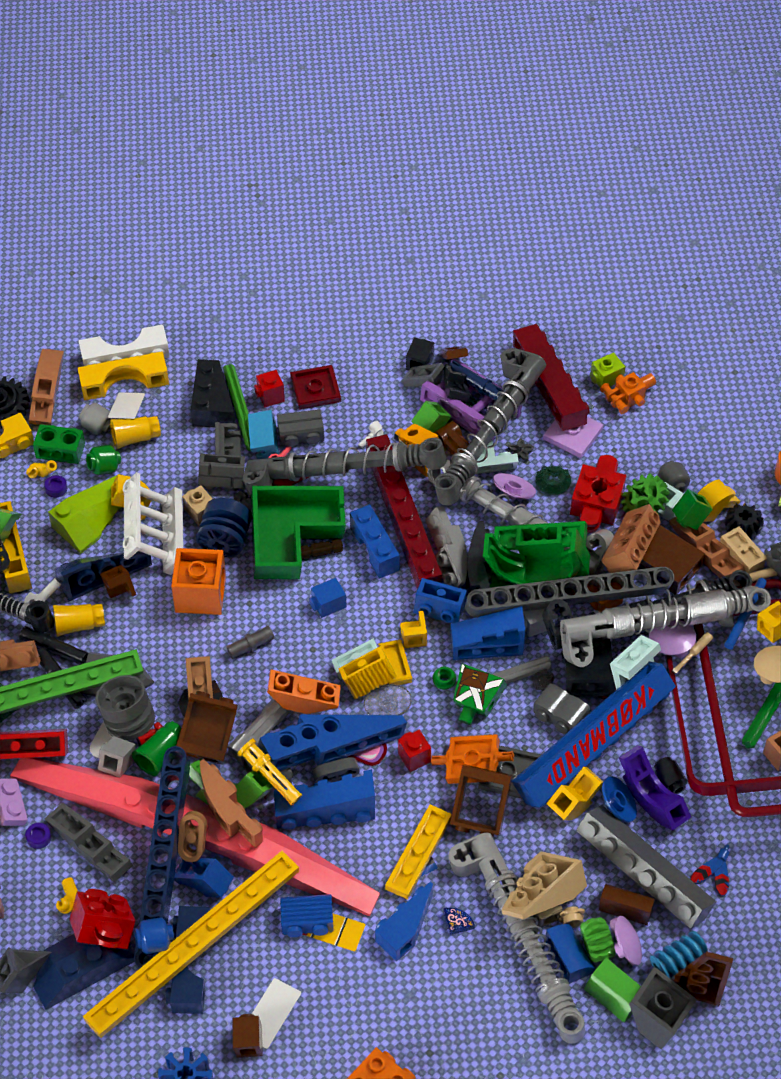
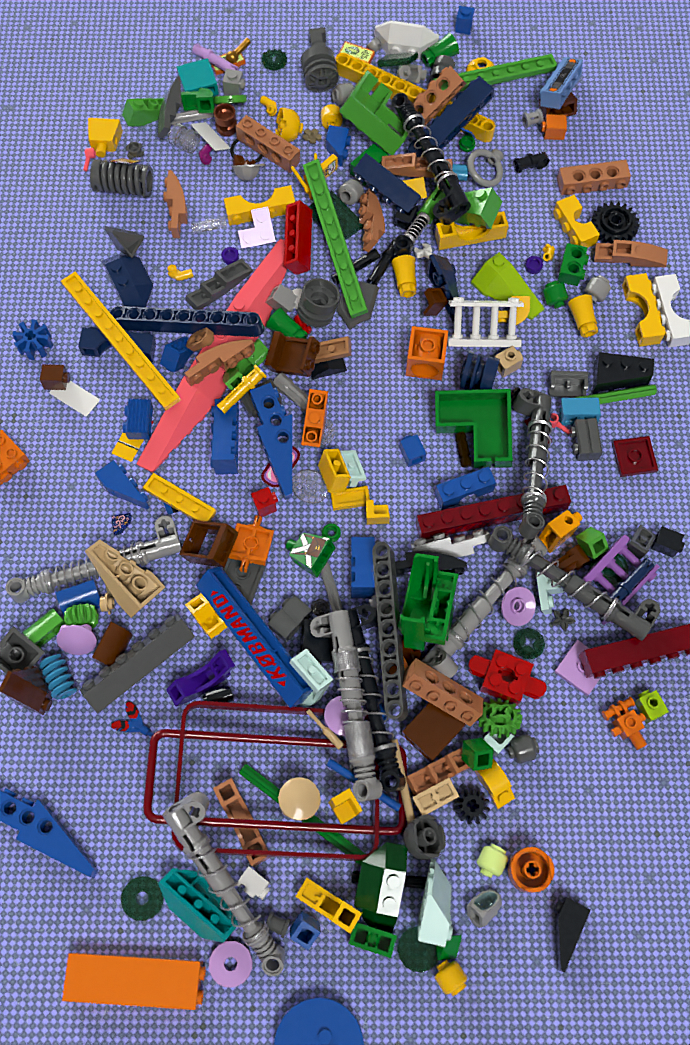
camera: 95 degrees right, 15 degrees up
(102, 919) = (145, 284): red brick -> none
(126, 405) = (610, 310): white sticker -> none
(153, 935) = (123, 312): blue head -> none
(221, 471) = (539, 373): dark grey brick -> none
(250, 642) = (376, 393): flat silver pin -> none
(269, 388) = (628, 417): red brick -> none
(336, 769) = (254, 446): dark grey beam -> none
(376, 430) = (584, 501): white hand -> none
(440, 601) = (399, 531): blue brick -> none
(454, 352) = (667, 568): reddish brown tile -> none
(455, 385) = (624, 562): black slope -> none
(619, 799) = (196, 657): blue dish -> none

